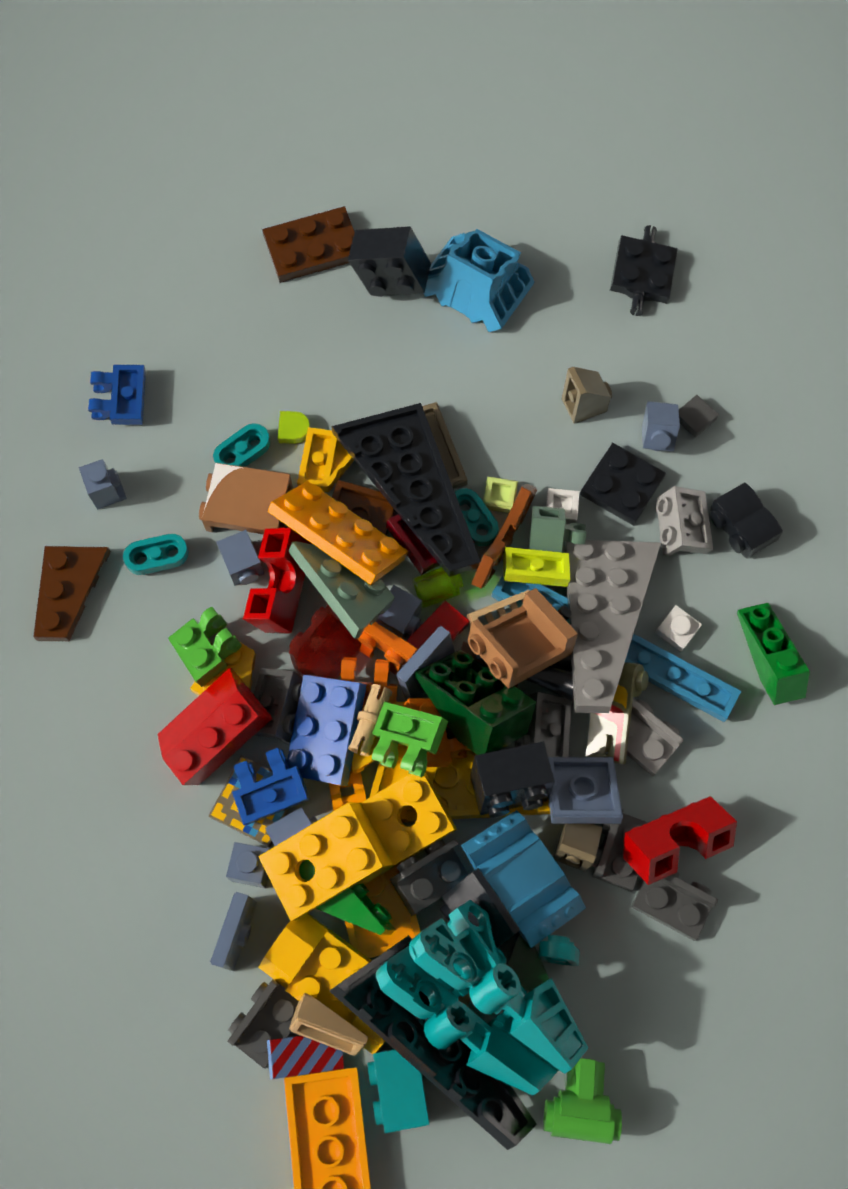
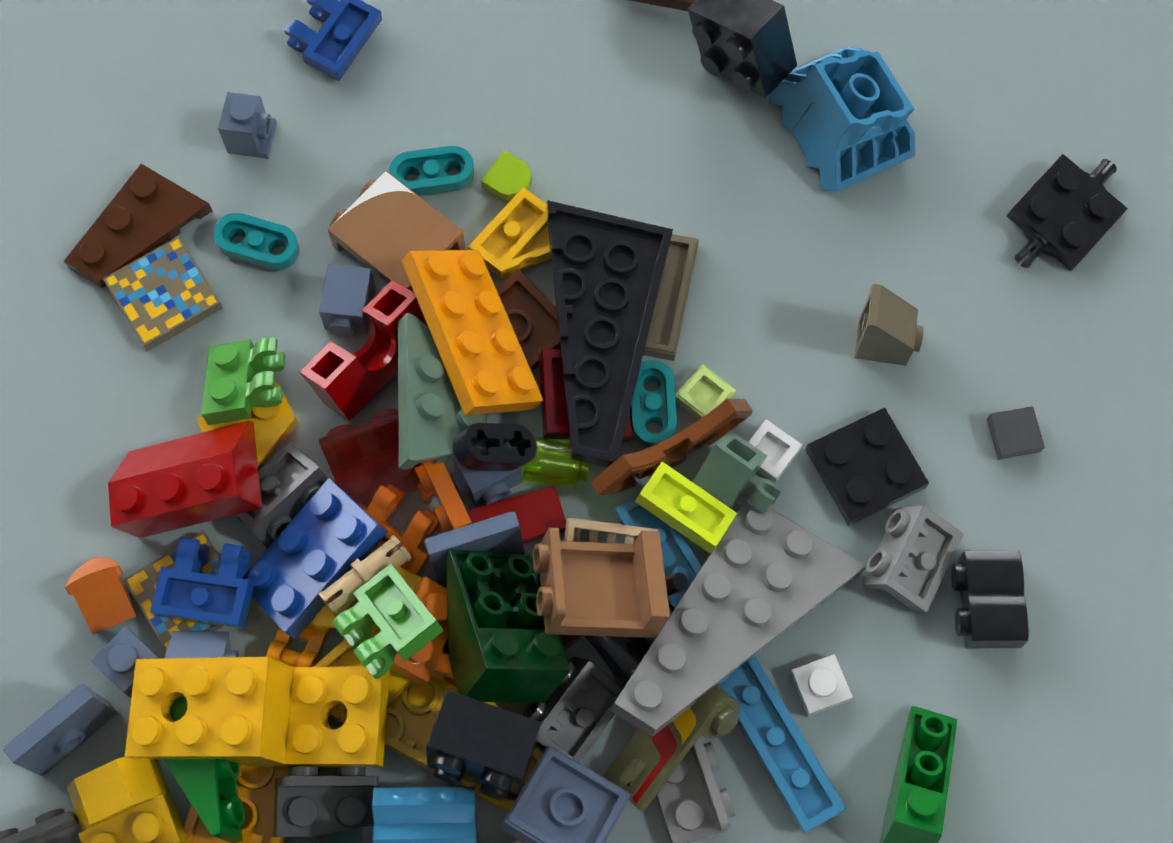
camera: 30 degrees right, 0 degrees up
(113, 621) = (162, 293): none -> tile
(199, 832) = (101, 594): none -> orange tile
(398, 589) = (496, 456): none -> black beam
(660, 426) = (956, 420): sand blue brick -> none

